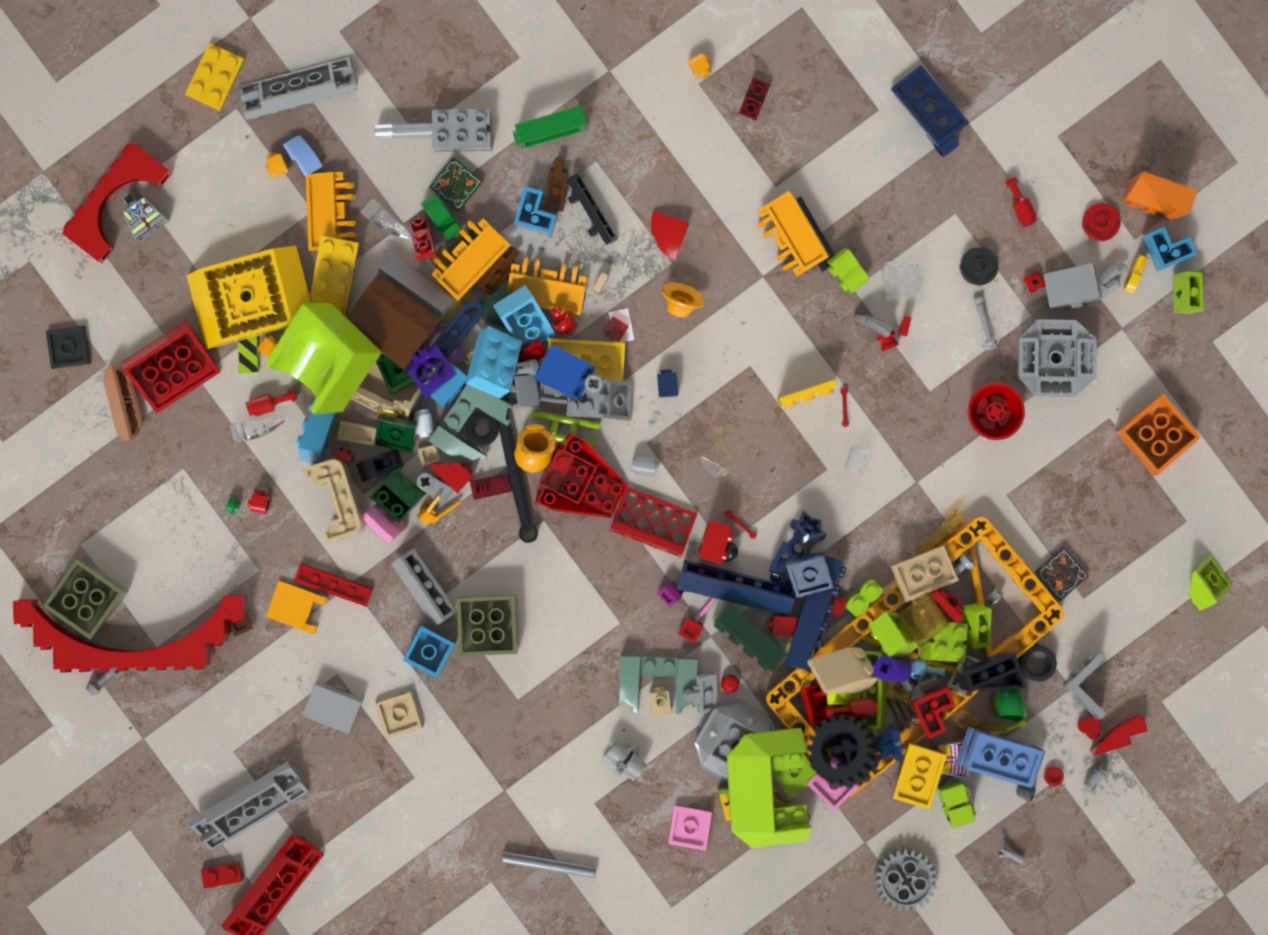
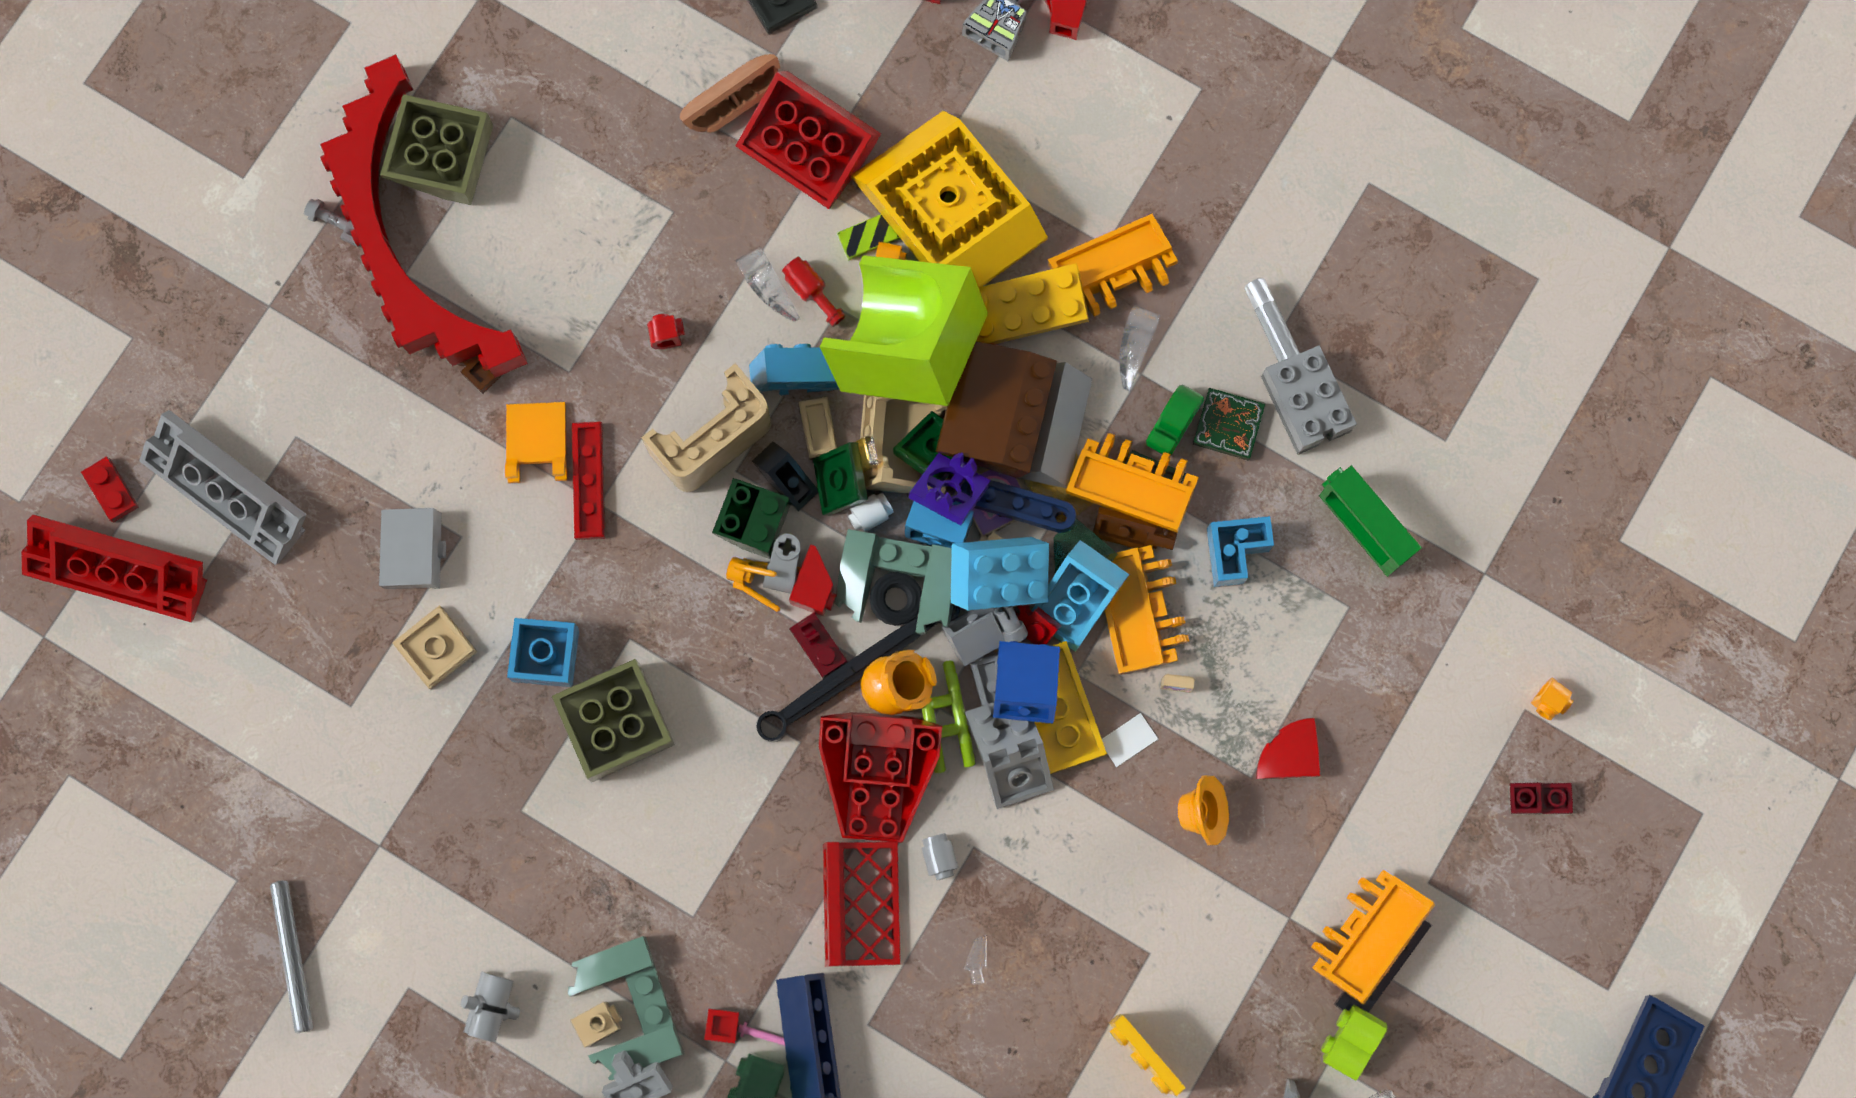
camera: 70 degrees right, 10 degrees down
(215, 77) = (1231, 43): yellow plate -> none
(232, 505) = (646, 297): green plate -> none
(276, 165) = (1148, 169): light orange plate -> none
(298, 88) = (1266, 157): light grey slope -> none
(303, 154) = (1177, 199): light blue slope -> none
(343, 454) = (780, 419): red plate -> none
(383, 523) = (702, 512): bright pink plate -> none
(422, 239) = (1130, 407): red slope -> none
(424, 587) = (633, 607): light grey brick -> none
(429, 455) = (827, 540): tan tile -> none
(556, 187) = (1287, 564): reddish brown hinge -> none
(565, 321) = (1100, 655): red animal -> none
(583, 195) = (1291, 608): black hinge -> none
(593, 388) = (1021, 729): light grey bush -> none
(615, 329) = (1120, 733): clear red tile -> none
(667, 384) = (1072, 840): dark blue brick -> none
(669, 594) = (763, 972): magenta tile -> none
(715, 542) = (867, 1008): red brick -> none
(732, 553) = (861, 1033): black piece -> none
(752, 535) = (919, 1013): red hinge -> none

